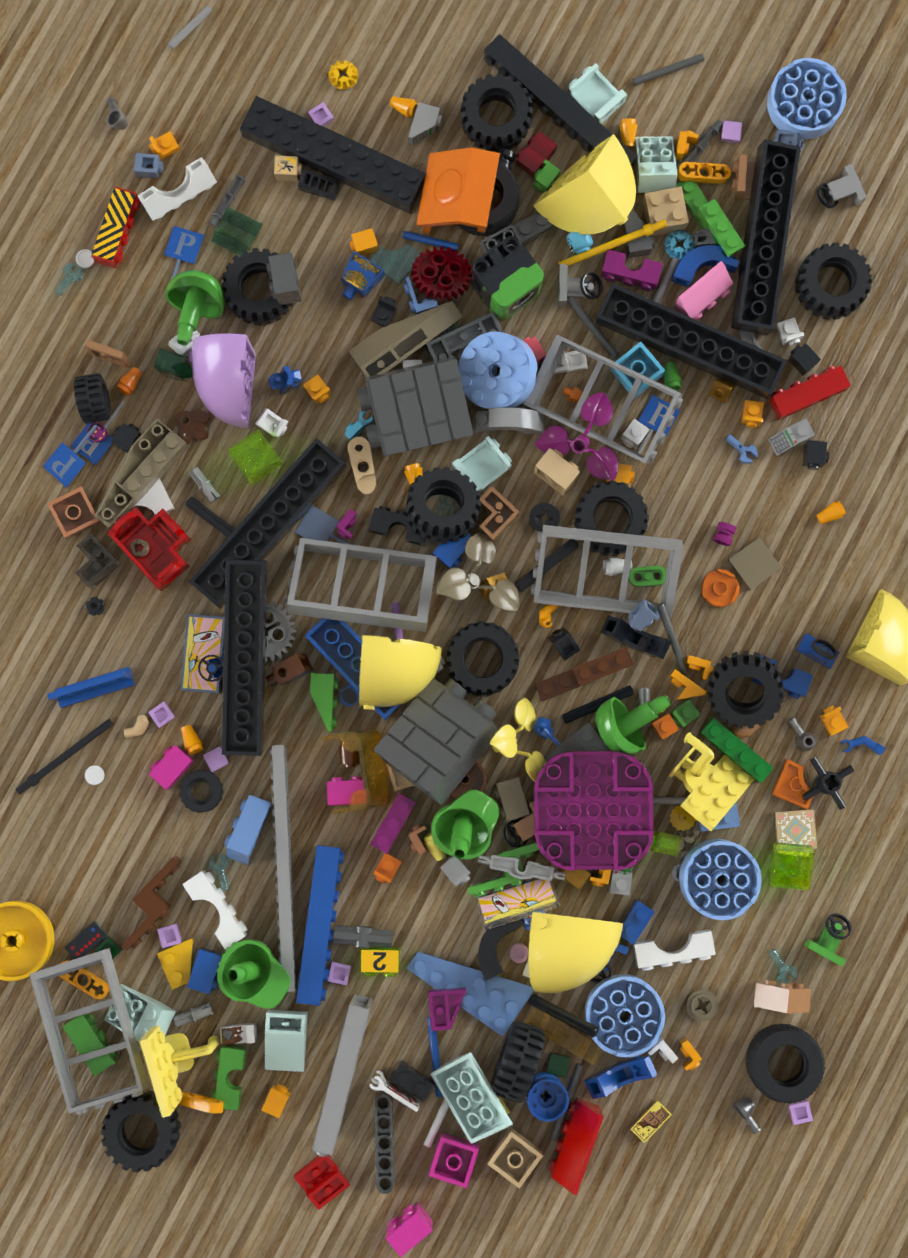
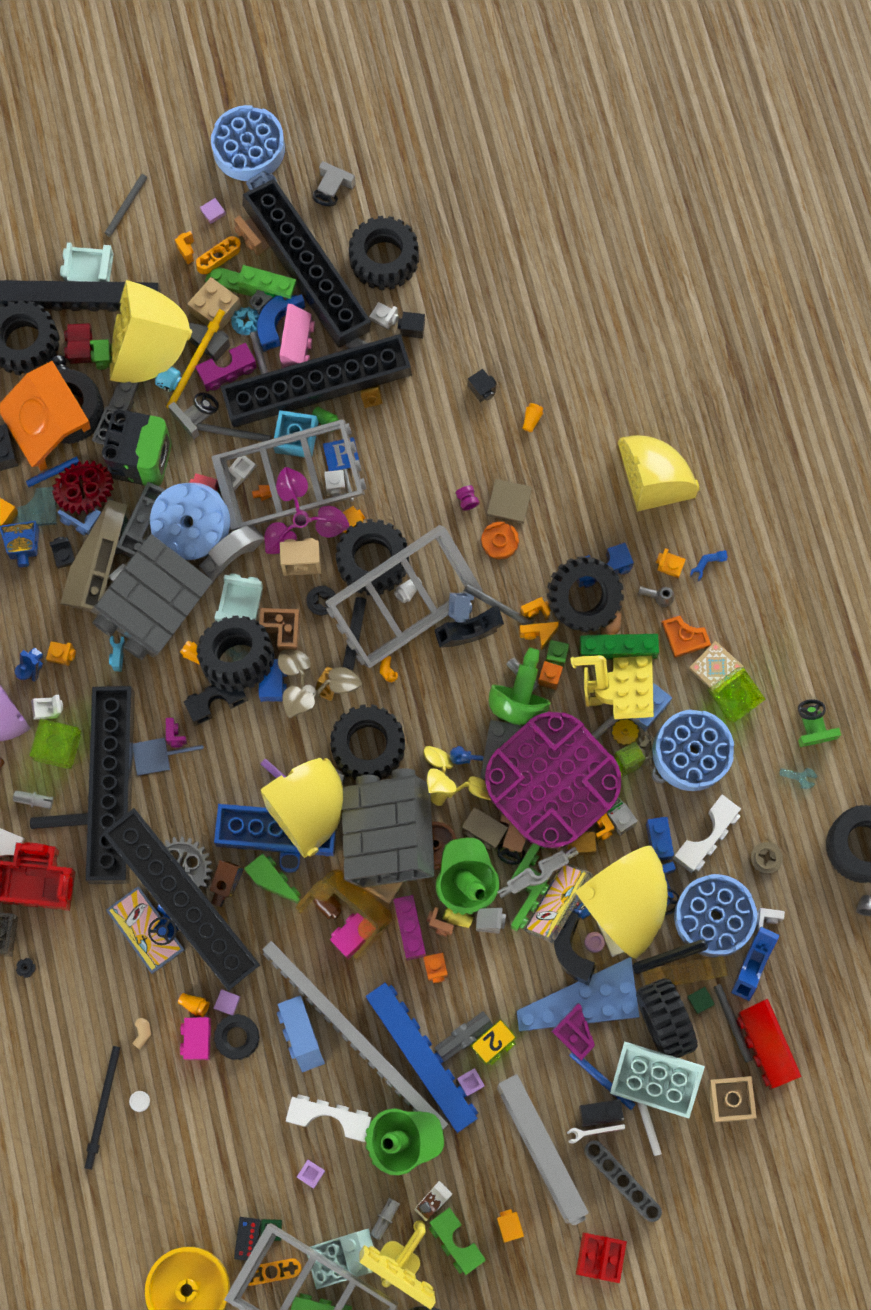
camera: 40 degrees left, 10 degrees down
(93, 687) = (79, 1031): blue fence -> none
(134, 548) = (20, 885): dark tan bush -> none
(152, 903) = (275, 1159): reddish brown bracket -> none
(161, 714) = (153, 1006): lavender tile -> none
(177, 963) = (336, 1189): yellow wing -> none
(201, 1102) = (453, 1279): light orange beam -> none
(205, 971) = (363, 1174): blue brick -> none
(221, 871) = (307, 1086): clear light blue bar -> none
(285, 1040) = (475, 1172): light aqua slope -> none
(356, 615) = (240, 791): light grey window -> none
(365, 480) = (158, 689): tan piece -> none
(408, 1229) = (701, 1229): dark pink brick -> none
(453, 1160) = (687, 1144): dark pink brick -> none
(553, 1104) = (724, 1029): blue wheel -> none
(564, 643) = (419, 679): black bracket -> none
(584, 674) = (455, 688): reddish brown bracket -> none
(594, 705) = (483, 708): black axle -> none
(628, 131) = (134, 271): light orange cone -> none
(647, 576) = (436, 577): bright green plate -> none
(650, 1121) = (808, 980): tile -> none
(655, 164) = (176, 278): light aqua slope -> none
(688, 1050) = (788, 900): light orange bracket -> none
(700, 146) = (198, 235): dark grey piece -> none
(742, 449) = (426, 427): medium blue bar -> none
(752, 413) = (409, 395): light orange bracket -> none
(783, 997) = (820, 795): brick -> none
(791, 437) = (453, 387): light grey slope -> none
(810, 392) = (438, 345): red brick -> none
(818, 650) = (613, 522): blue piece -> none
(834, 785) = (707, 618): black bar -> none

